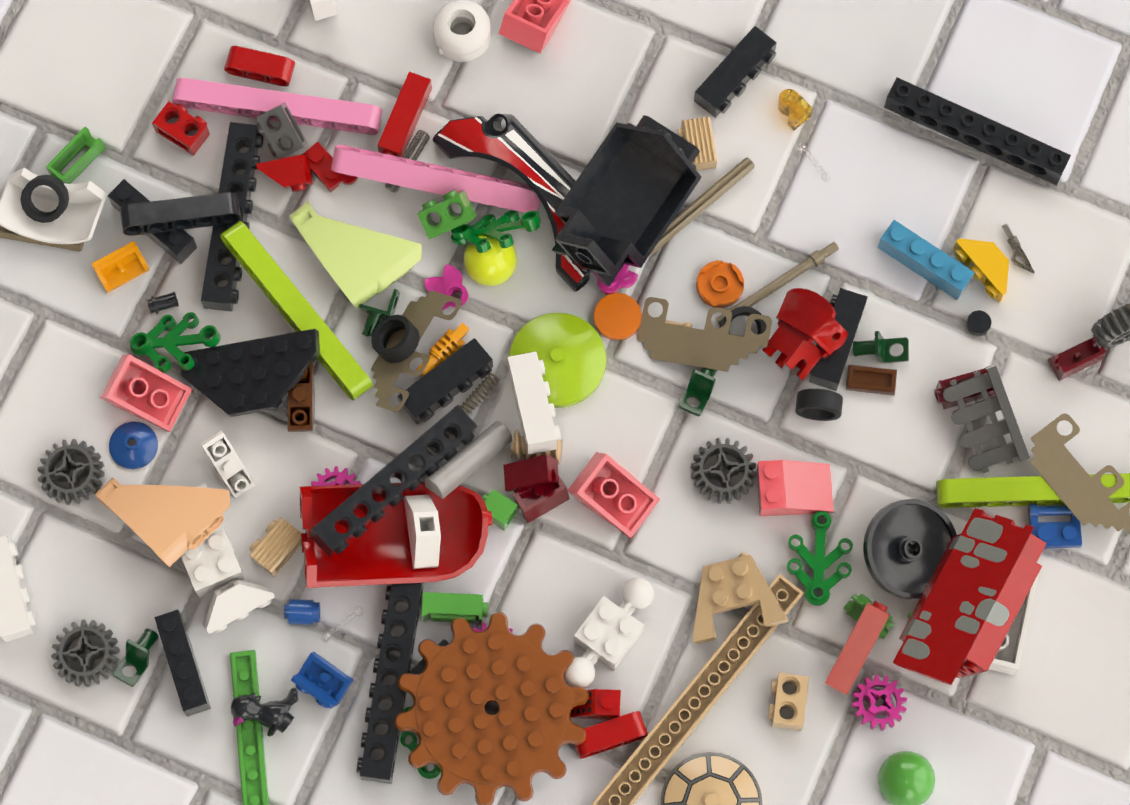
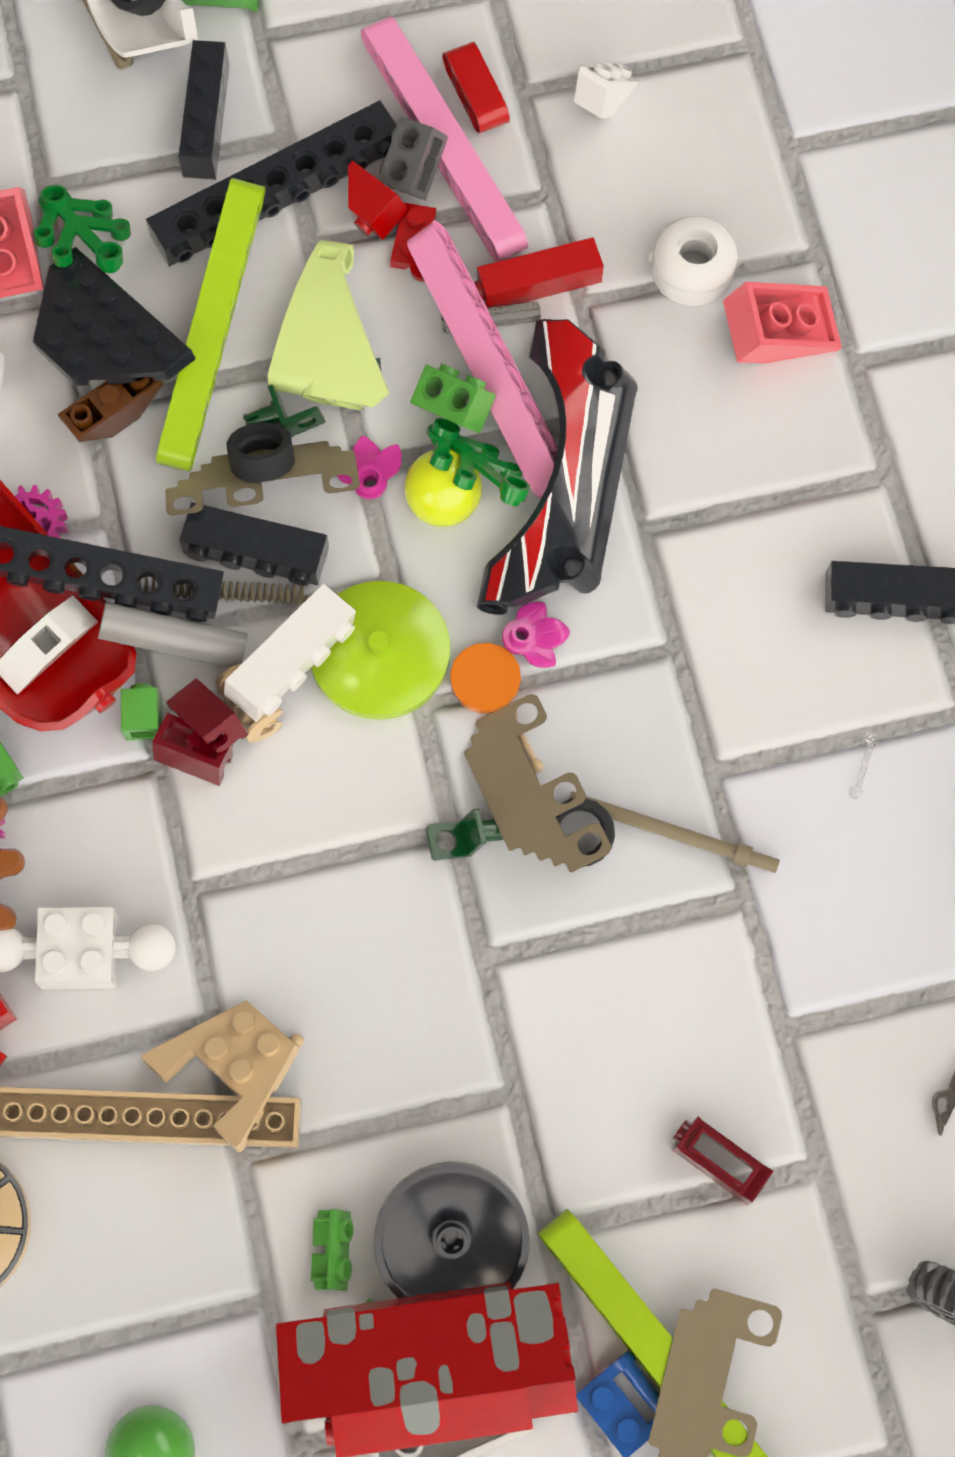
camera: 50 degrees right, 0 degrees up
(120, 266) = (128, 116): light orange hinge -> none
(162, 302) = (119, 187): black pin -> none
(178, 131) = (336, 62): red brick -> none
(180, 214) = (223, 121): black beam -> none
(445, 347) = (295, 513): light orange hinge -> none
(613, 494) = (257, 831): coral slope -> none
(626, 198) = (629, 574): black panel -> none
(700, 134) = (772, 613): tan brick -> none
(705, 200) = (698, 671): dark tan axle -> none
(720, 284) = (619, 766): orange tile -> none
(731, 467) = (373, 948): dark grey gear -> none
(793, 487) = (427, 1038): coral slope -> none
(794, 106) = (911, 691): clear yellow leg -> none
(795, 702) = (149, 1237): tan brick -> none
(801, 320) = (626, 904): red piece -> none
(819, 404) = (552, 990): black tyre -> none
(819, 562) = (354, 1137): green plant -> none
(848, 310) = (657, 953): black brick -> none
(858, 647) = (271, 1264): brick -> none
(871, 380) = (640, 1033): reddish brown tile -> none
(881, 348) = (688, 1014): dark green bracket -> none
(886, 709) = (207, 1343): dark pink gear -> none
(925, 259) = (845, 987): dark azure brick -> none
(978, 323) = (818, 1112): black tile -> none
(988, 264) = (900, 1067): yellow slope -> none
(994, 430) = (710, 1203): dark grey fence -> none
(1076, 358) = (869, 1271): dark red hinge -> none

